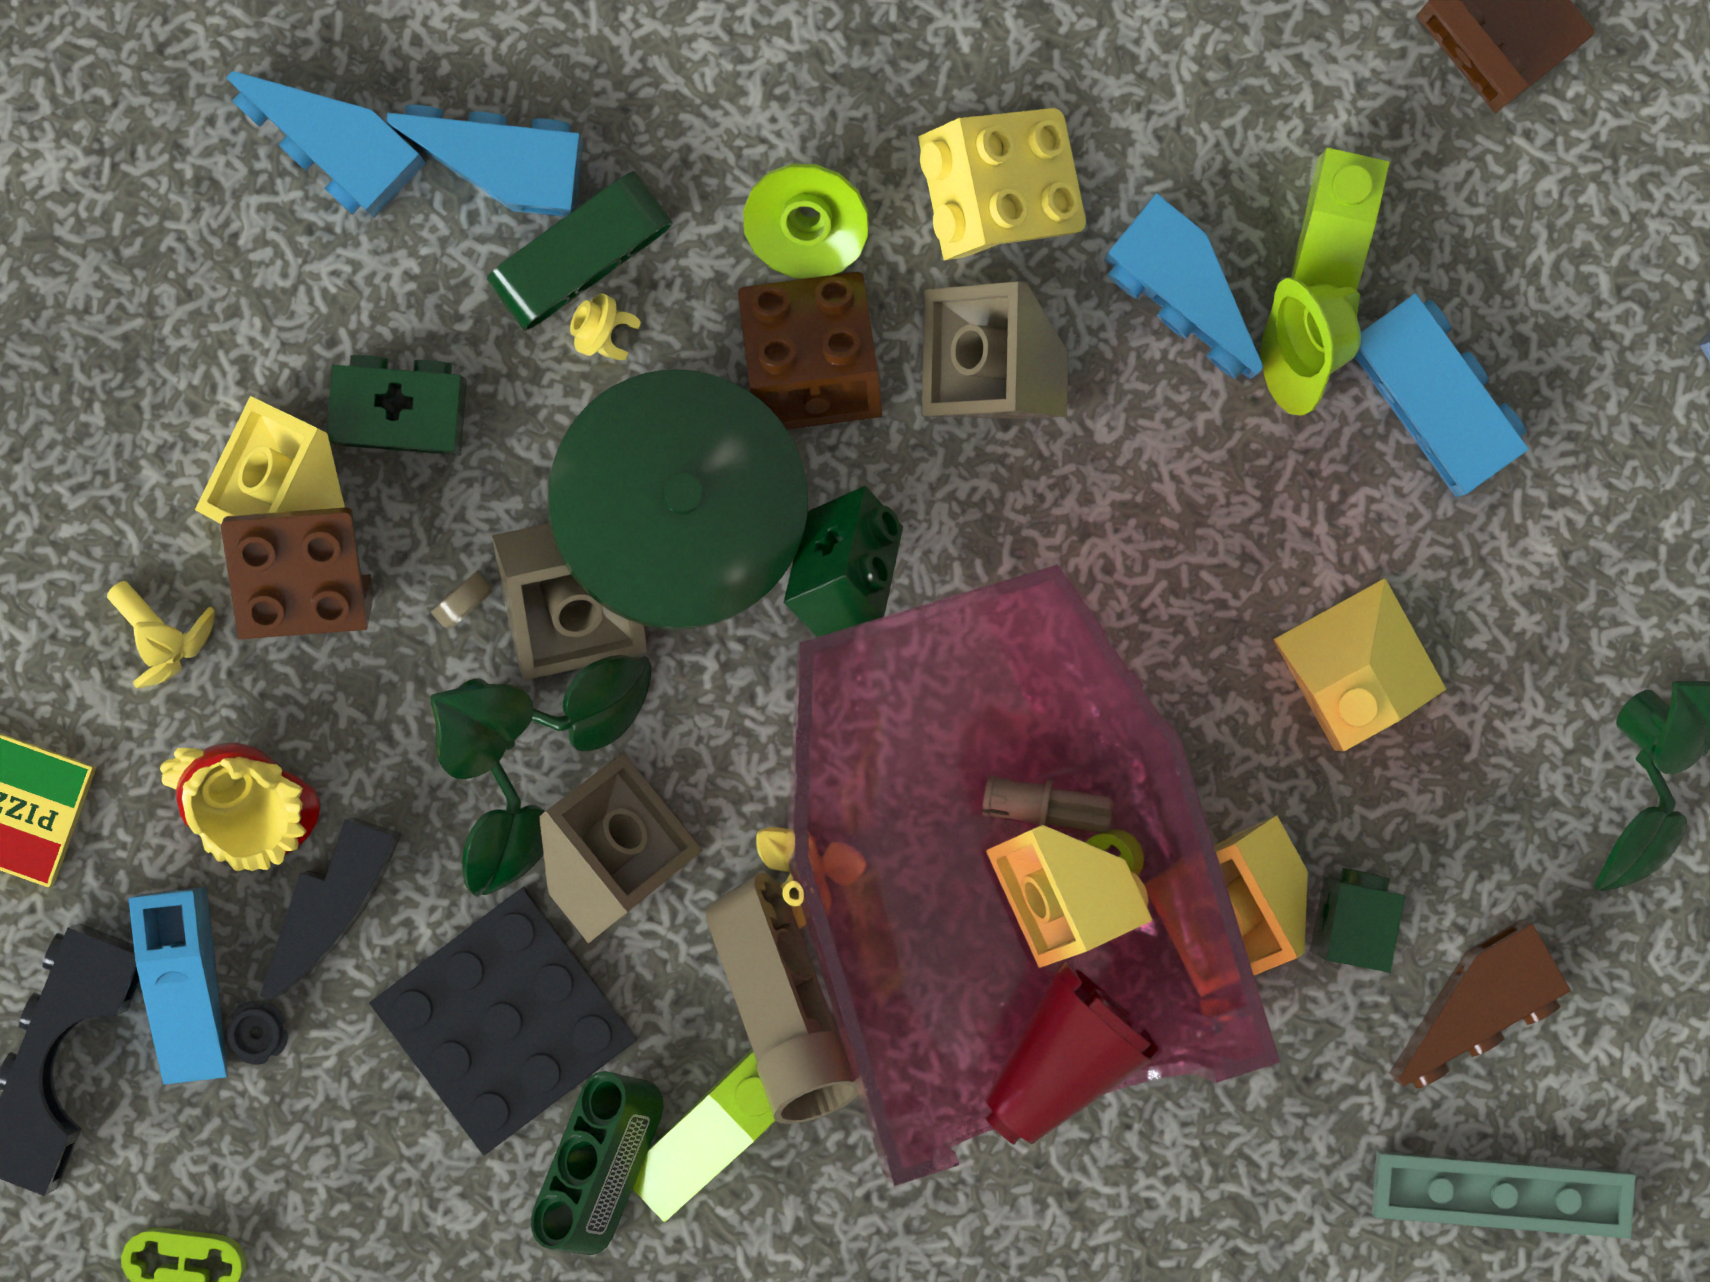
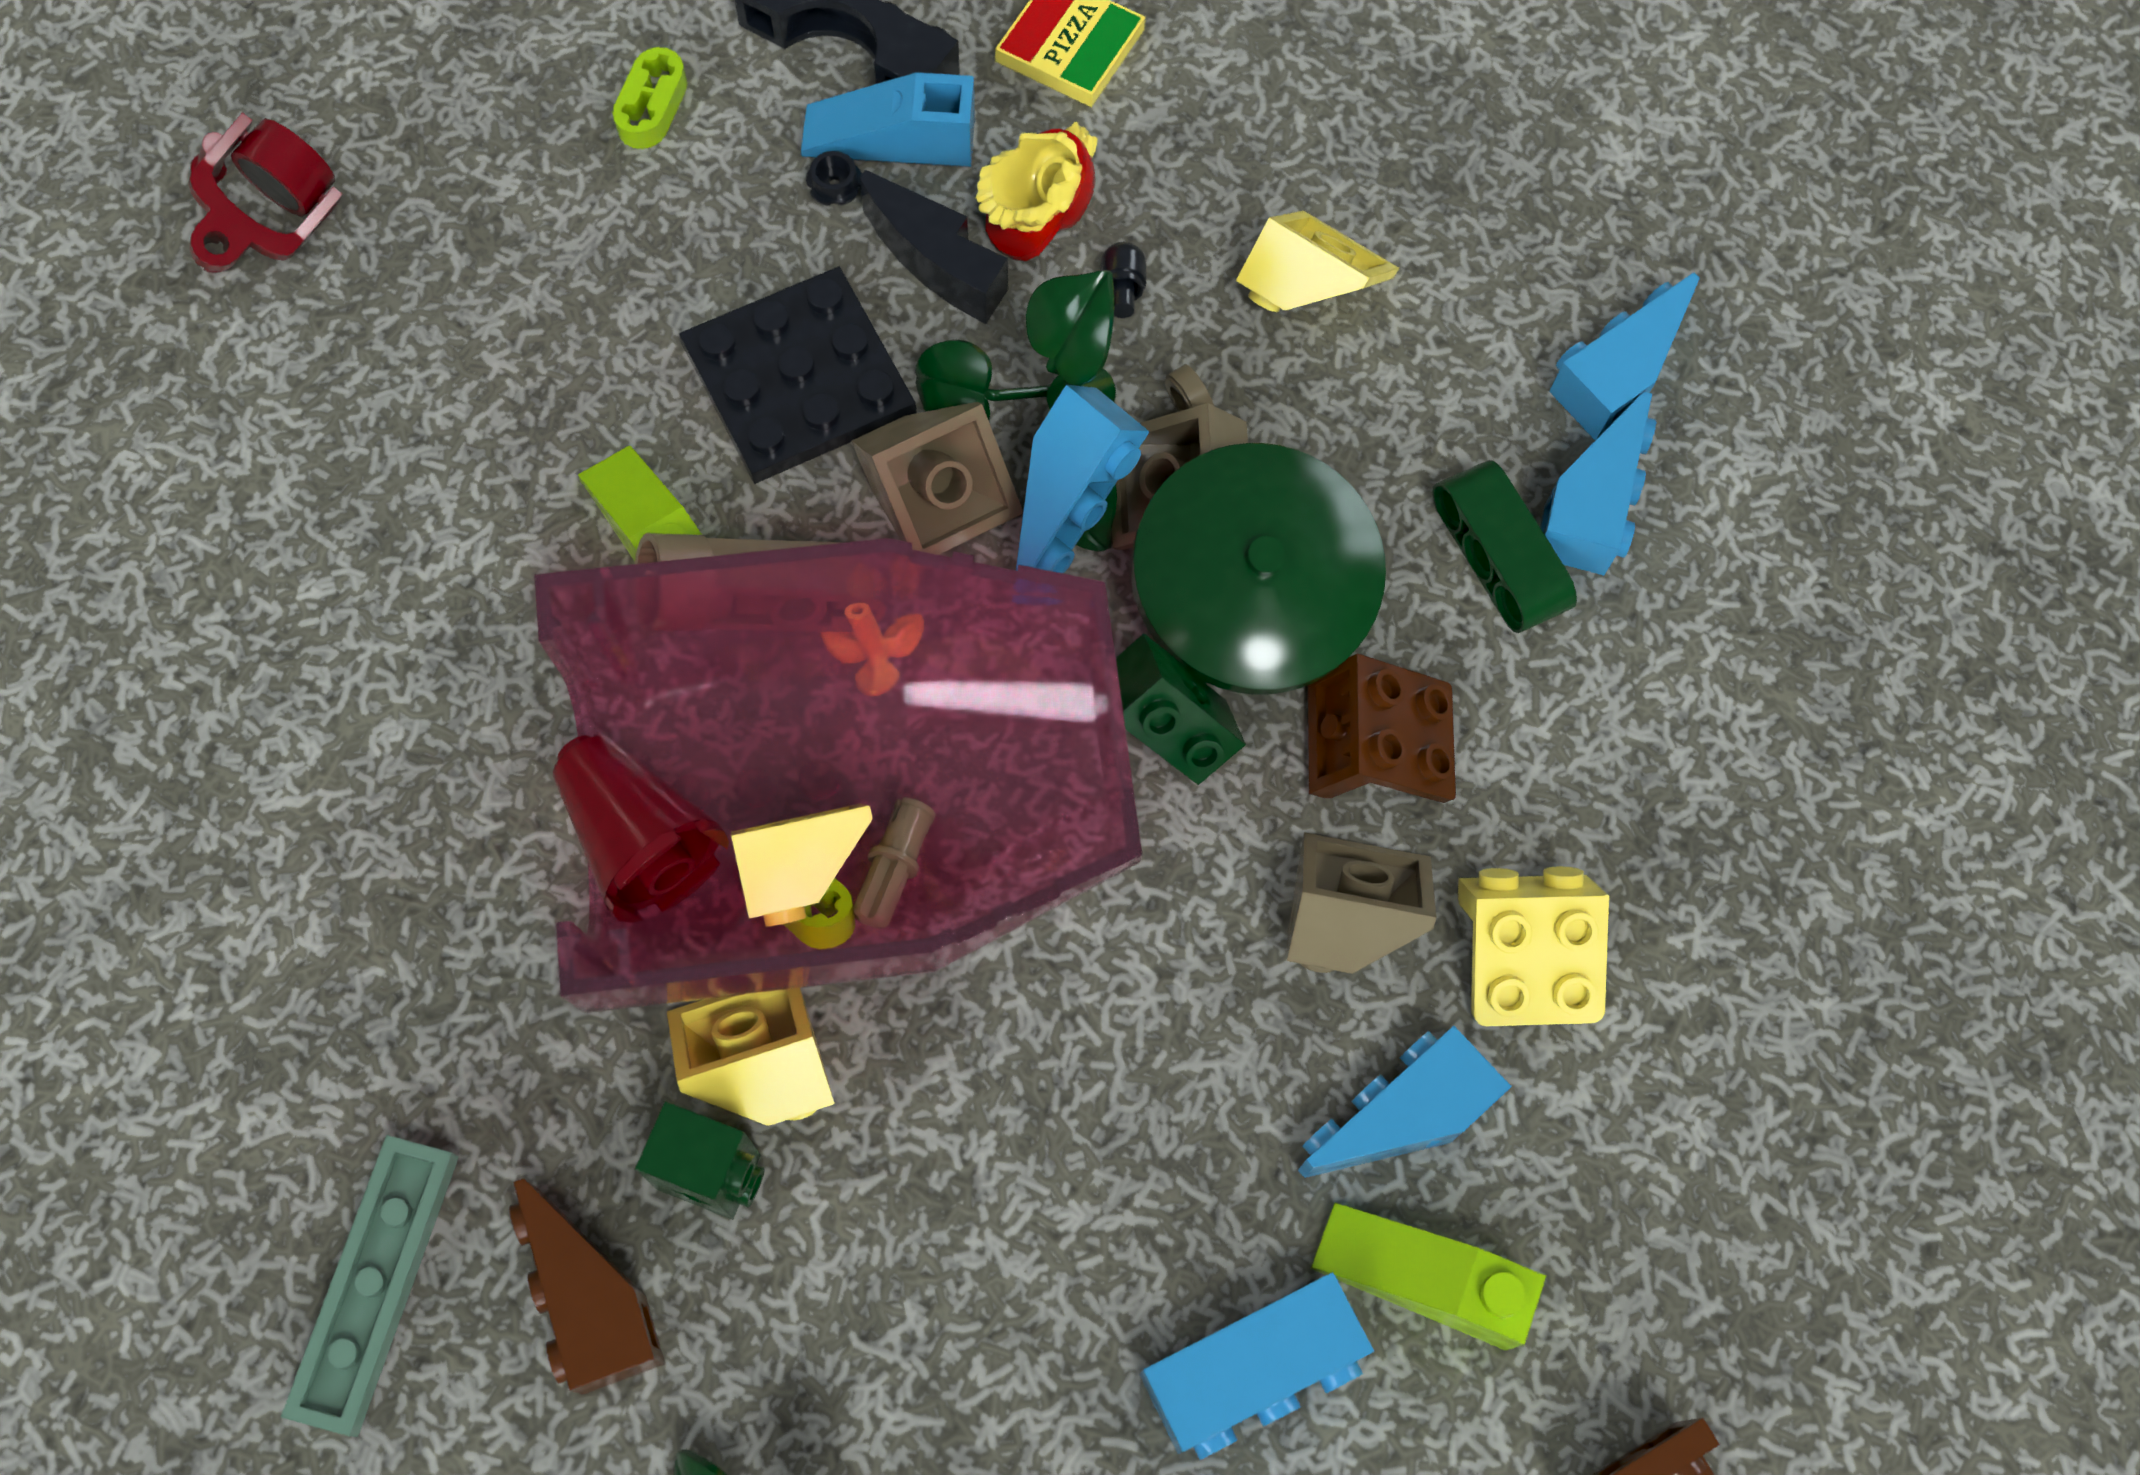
camera: 100 degrees right, 20 degrees down
(157, 642) = (1193, 152): light yellow plant -> none
(296, 573) = (1236, 248): reddish brown bracket -> none
(323, 694) = (1129, 275): none -> black cylinder
(429, 427) = (1374, 370): dark green brick -> none
(594, 324) = (1432, 547): light yellow plate -> none
(597, 1163) = (646, 416): dark green beam -> none
(605, 707) = (1072, 469): none -> dark azure slope
(799, 243) = (1501, 732): lime dish -> none
(1306, 340) = (1339, 1228): lime piece -> none
(1360, 666) = (974, 1229): light yellow slope -> none

